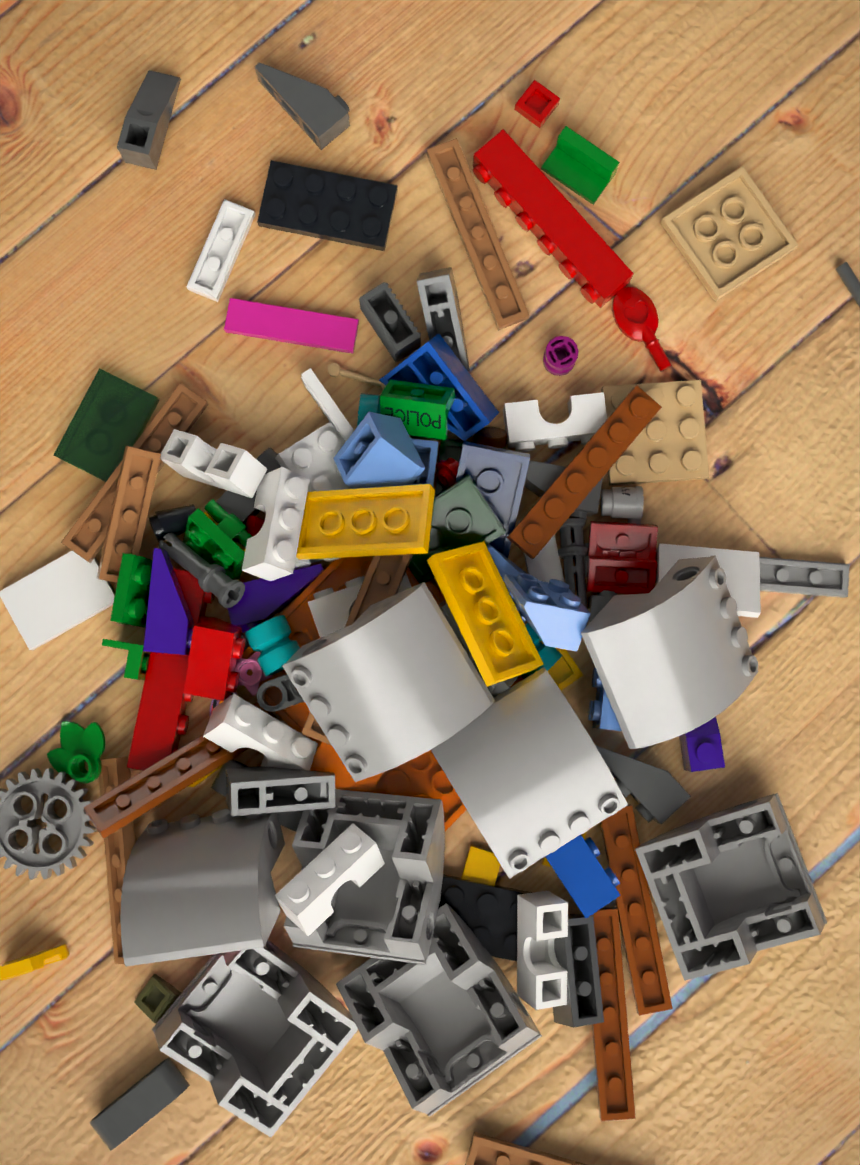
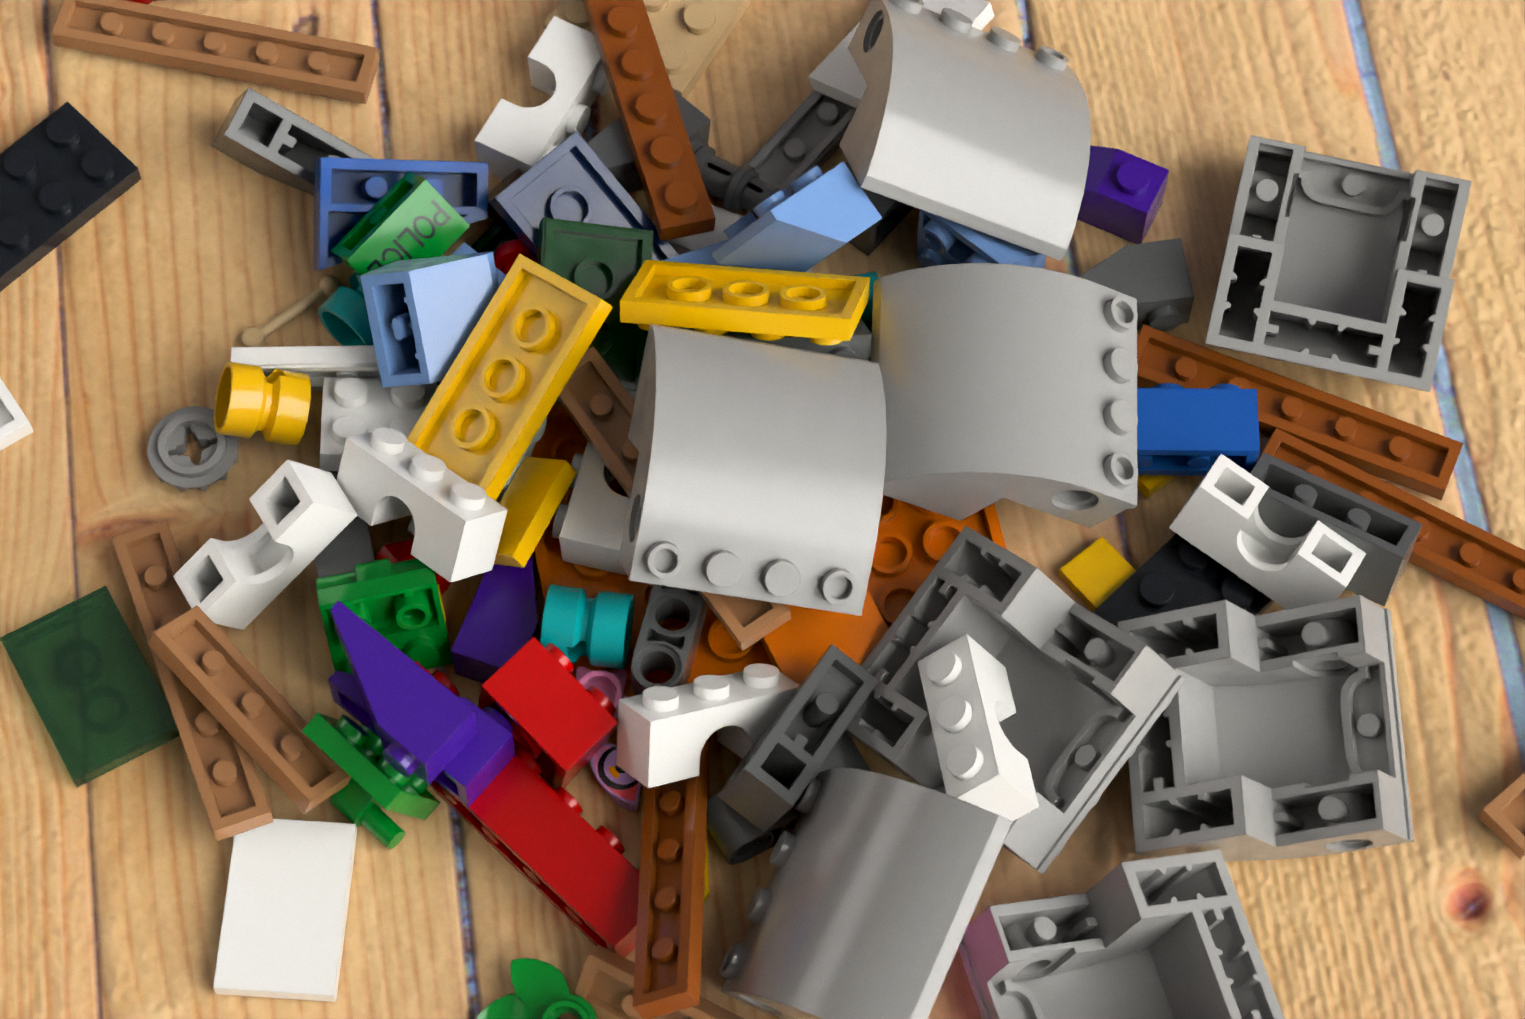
camera: 55 degrees left, 20 degrees down
(136, 661) = (455, 823): green panel -> none
(156, 598) = (412, 712): none -> dark purple slope
(170, 521) = (304, 673): black cone -> none
(210, 576) = (430, 641): dark grey pin -> none
(255, 370) = (170, 440): none -> light grey gear
(291, 325) = (147, 353): dark pink tile -> none
(291, 402) = (269, 404): none -> yellow wheel
(314, 576) = (531, 505): none -> yellow tile
(390, 321) = (249, 213): dark grey brick -> none
(558, 362) = (462, 46): magenta wheel -> none
(621, 557) = (788, 129): red slope -> none
(623, 503) = (723, 90): light grey piece -> none

